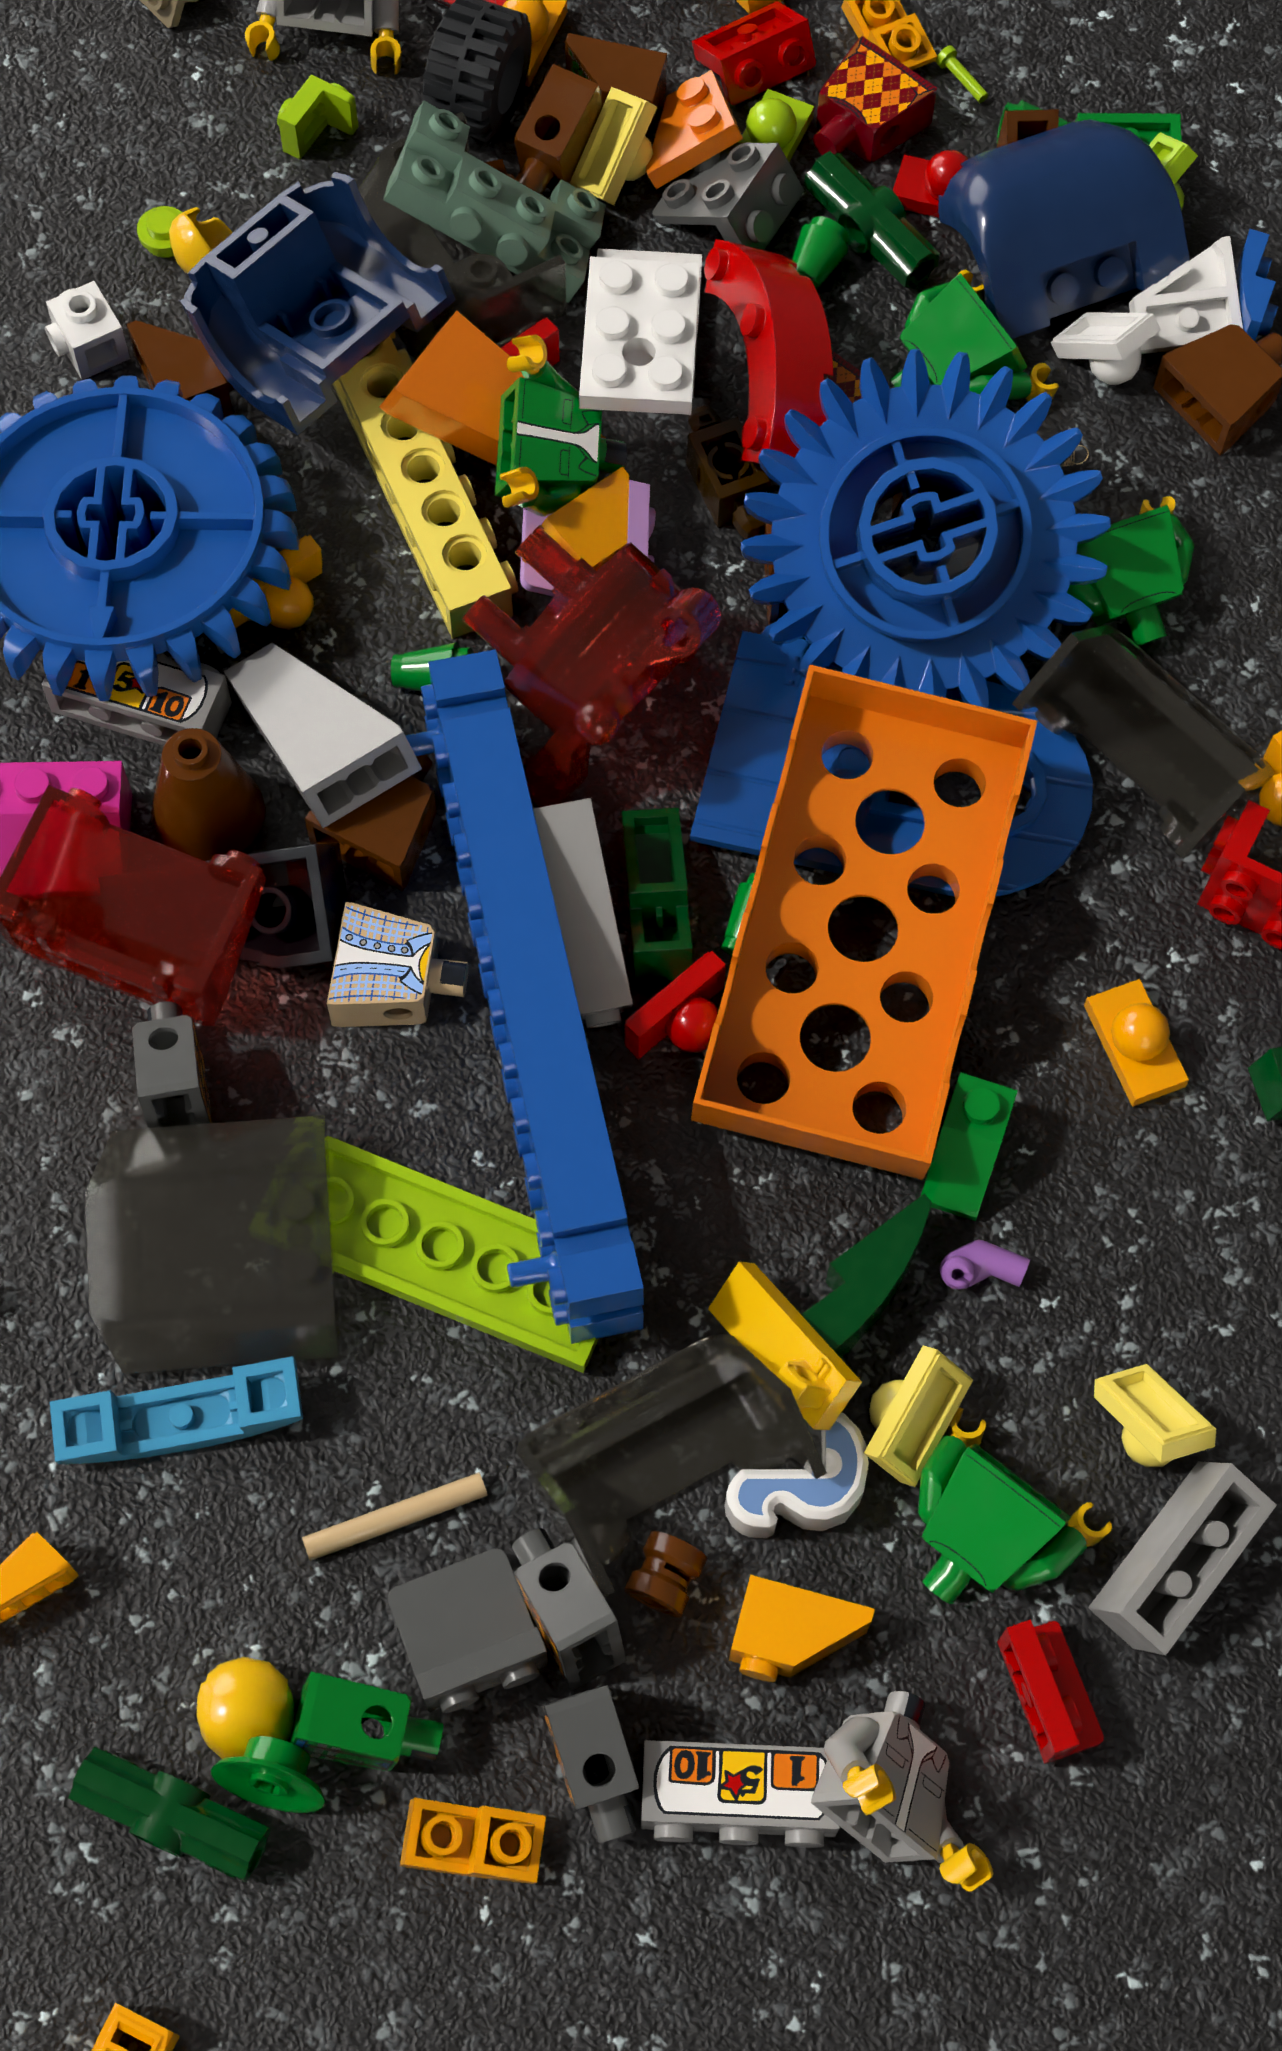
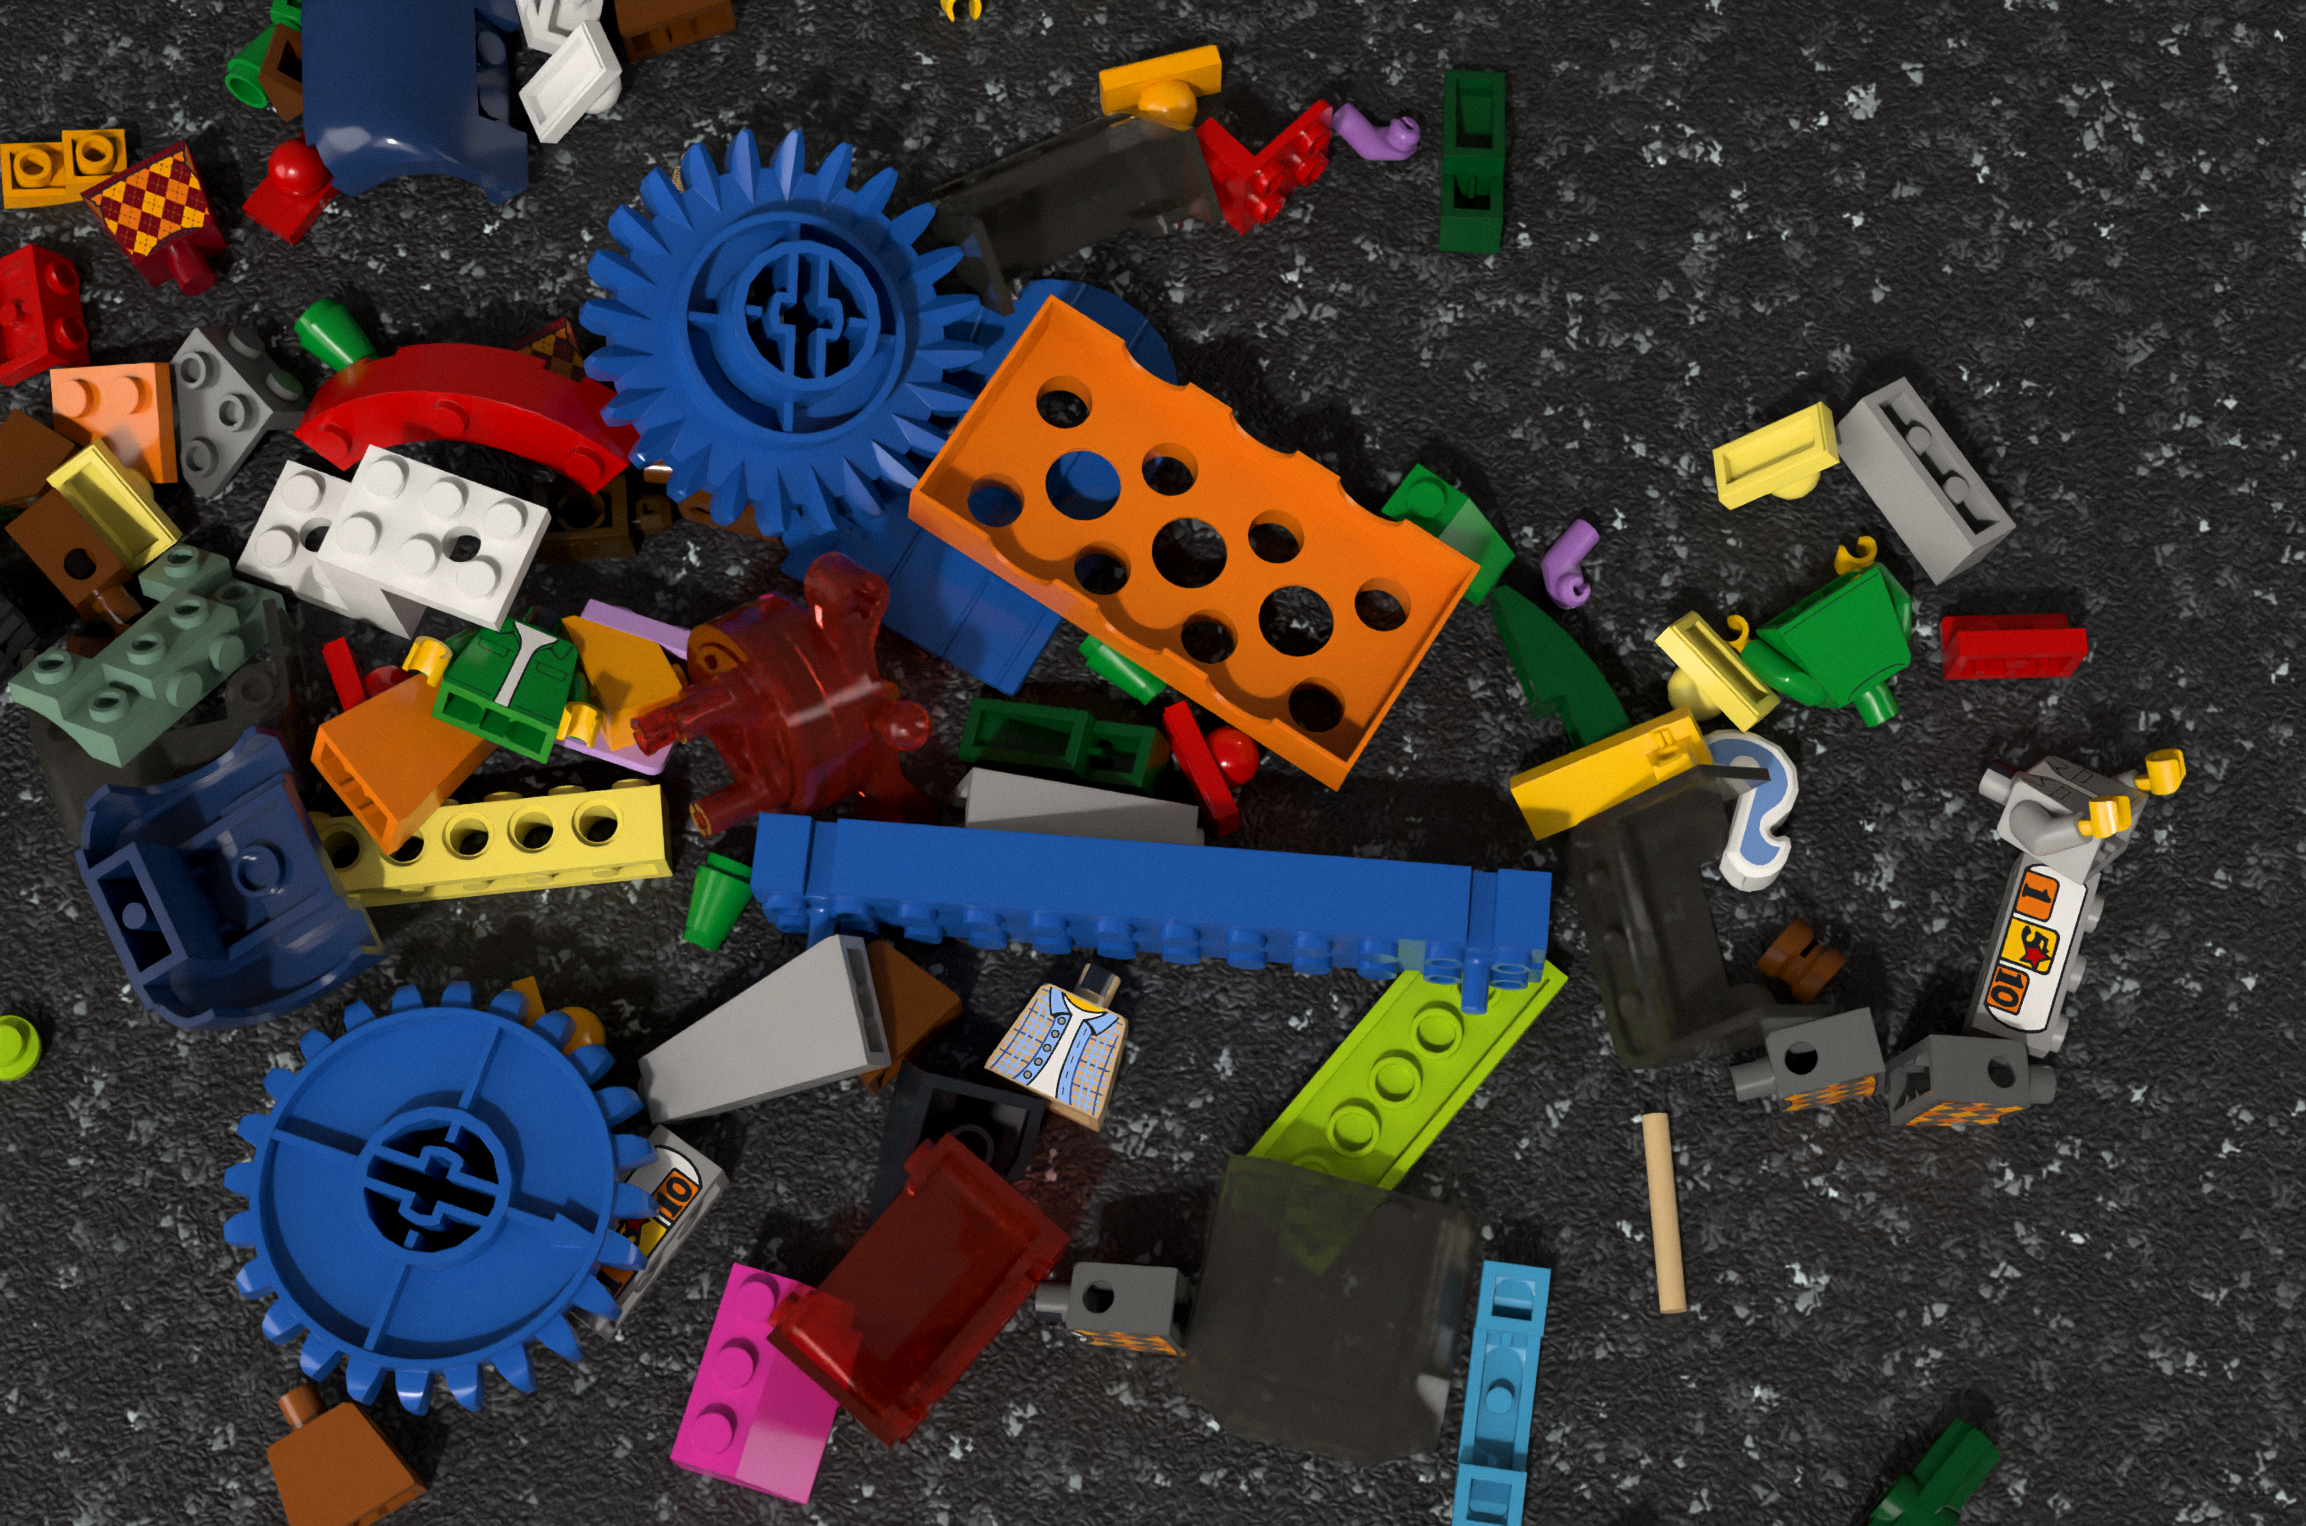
camera: 70 degrees left, 5 degrees up
(86, 330) = (119, 1171): white brick -> none
(179, 359) = (221, 1078): reddish brown slope -> none
(195, 239) = (65, 1000): yellow hair -> none
(204, 798) = (802, 1196): reddish brown cone -> none
(243, 1702) = (1824, 1414): yellow hair -> none
(271, 1776) = (1907, 1396): green piece -> none
(332, 1730) = (1880, 1303): green torso -> none
(467, 1631) = (1810, 1170): dark grey bracket -> none
(473, 1841) = (2010, 1227): light orange slope -> none
(779, 121) = (143, 325): lime tile -> none
(792, 1628) = (1889, 863): light orange slope -> none
(872, 219) = (313, 267): dark green piece -> none
(948, 59) = (126, 120): lime piece -> none
(956, 320) = (525, 230): green torso -> none
(1136, 1042) = (1377, 342): light orange tile -> none
(1146, 568) = (878, 137): green torso -> none

